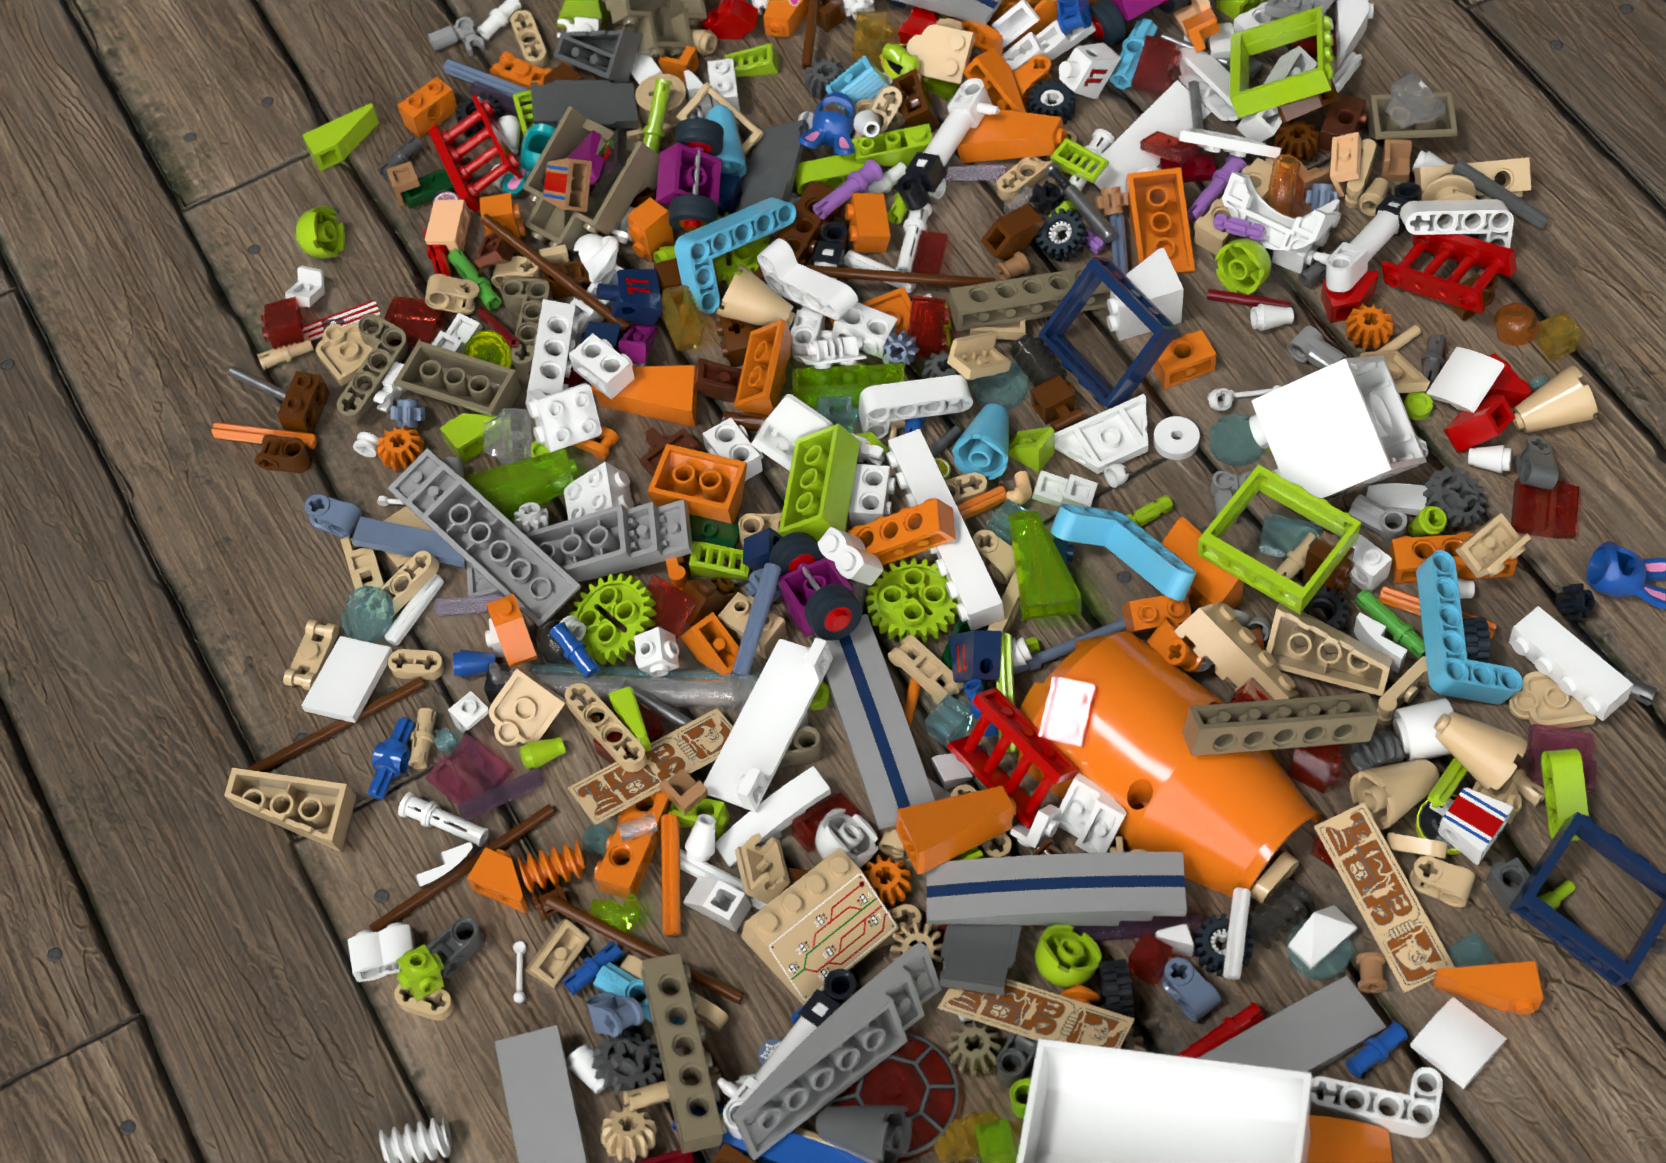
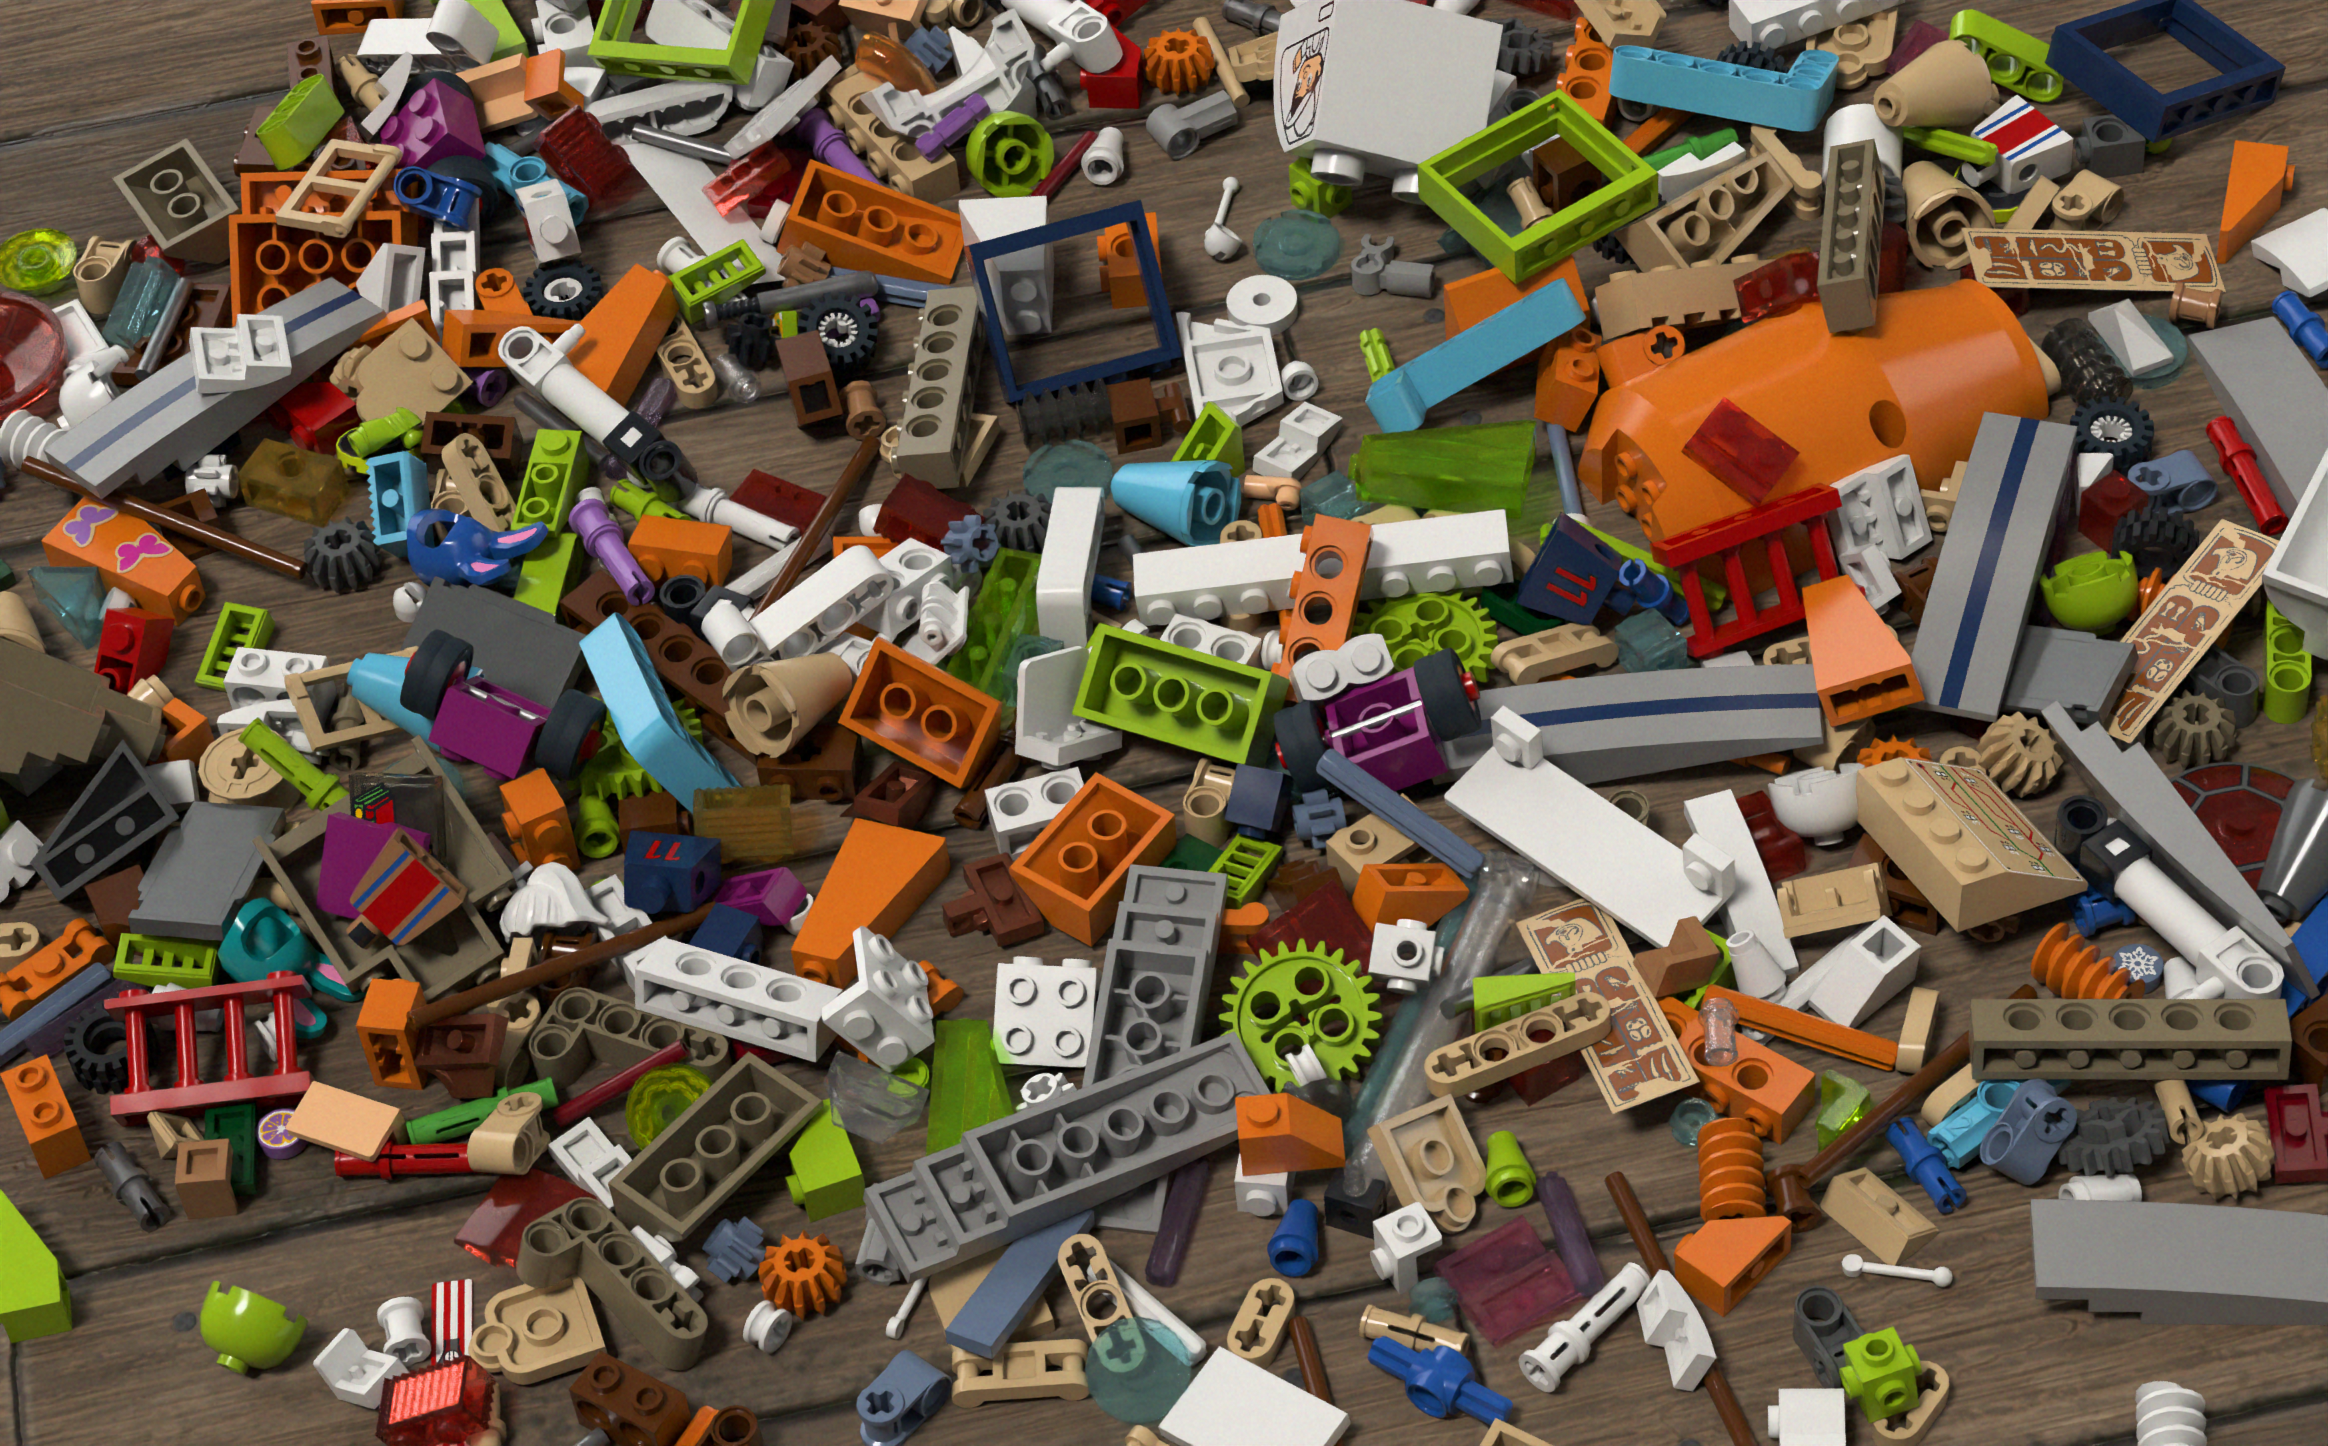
camera: 75 degrees left, 10 degrees down
(335, 296) = (403, 1329): none -> white bush
(430, 161) = (170, 1130): none -> tan slope
(574, 650) = (1361, 1055): blue pin -> none
(602, 365) = (806, 924): white brick -> none
(689, 940) = (1917, 1030): none -> tan beam
(747, 1023) = (2077, 973): none -> orange piece
(864, 119) = (506, 491): white cone -> none
(976, 356) = (1033, 468): tan bracket -> none
(1236, 933) = (2111, 404): white axle -> none
(1428, 522) = (1541, 70): lime cone -> none
(1470, 952) = (2193, 213): clear light blue plate -> none

